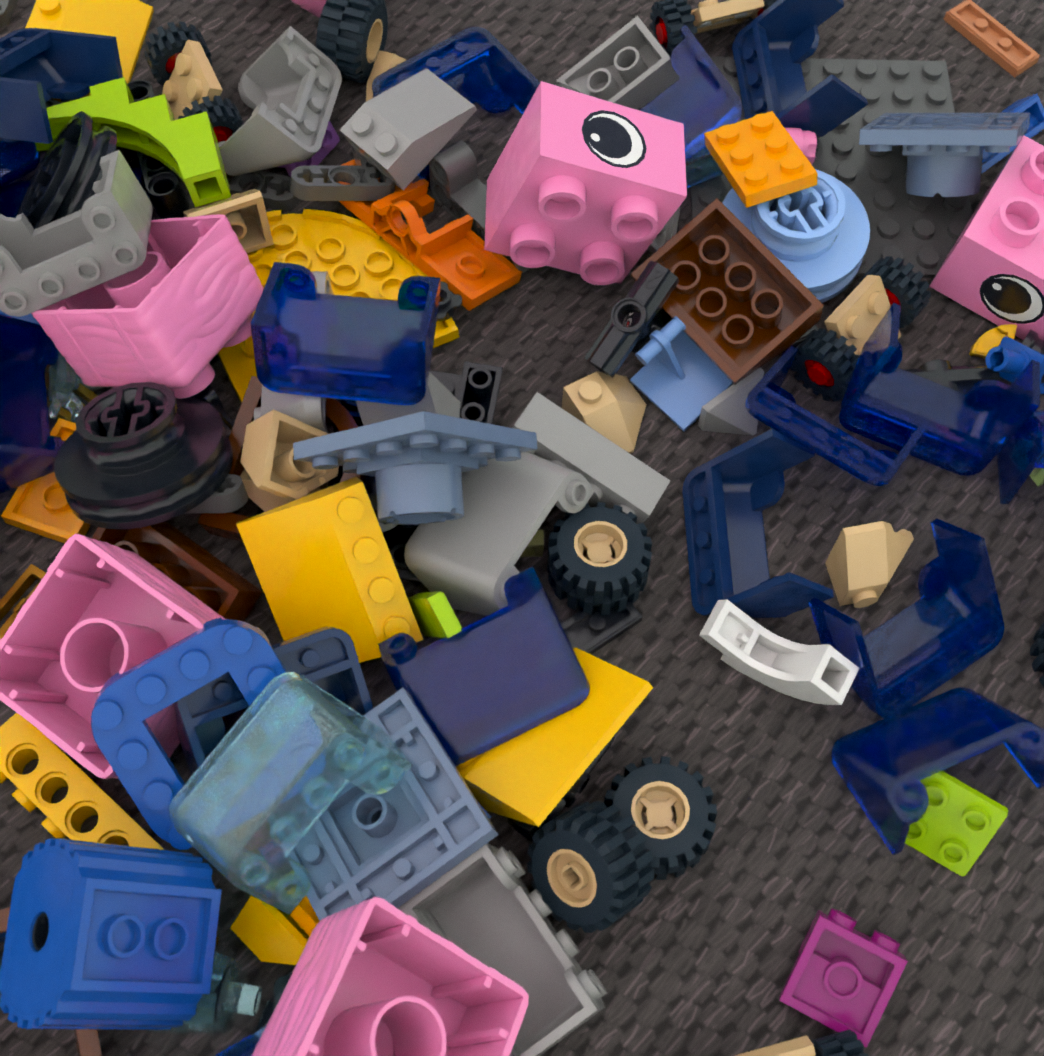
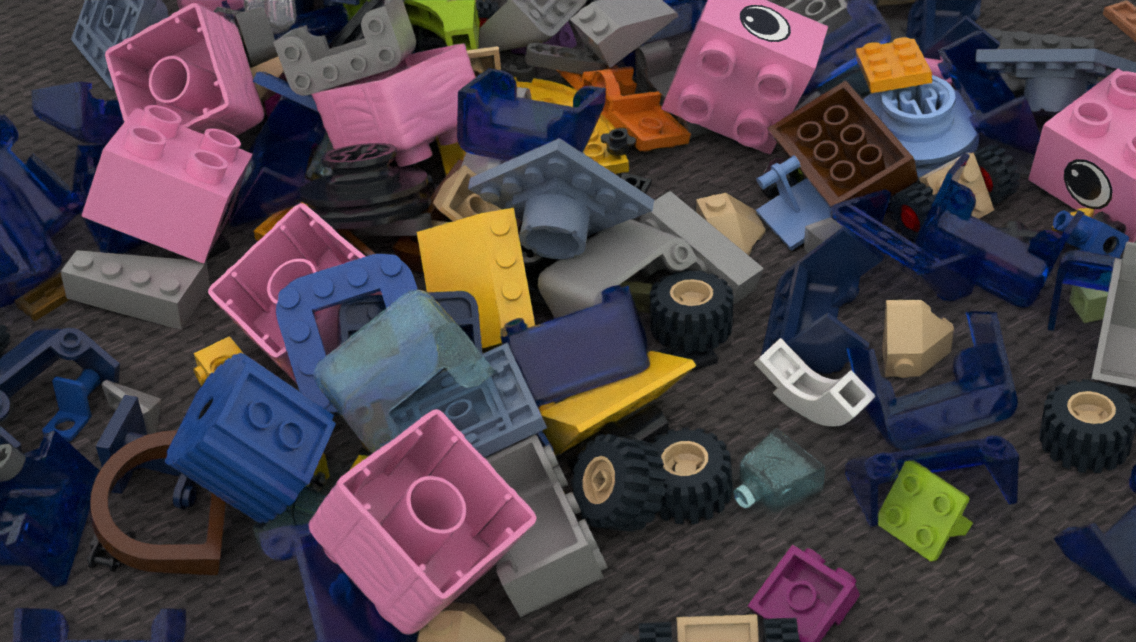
camera: 20 degrees right, 20 degrees down
(434, 614) = (547, 303): lime tile -> none
(645, 297) = (758, 155): black piece -> none
(762, 790) = (778, 474): none -> clear light blue torso
(874, 187) = (988, 96): none -> clear blue windscreen

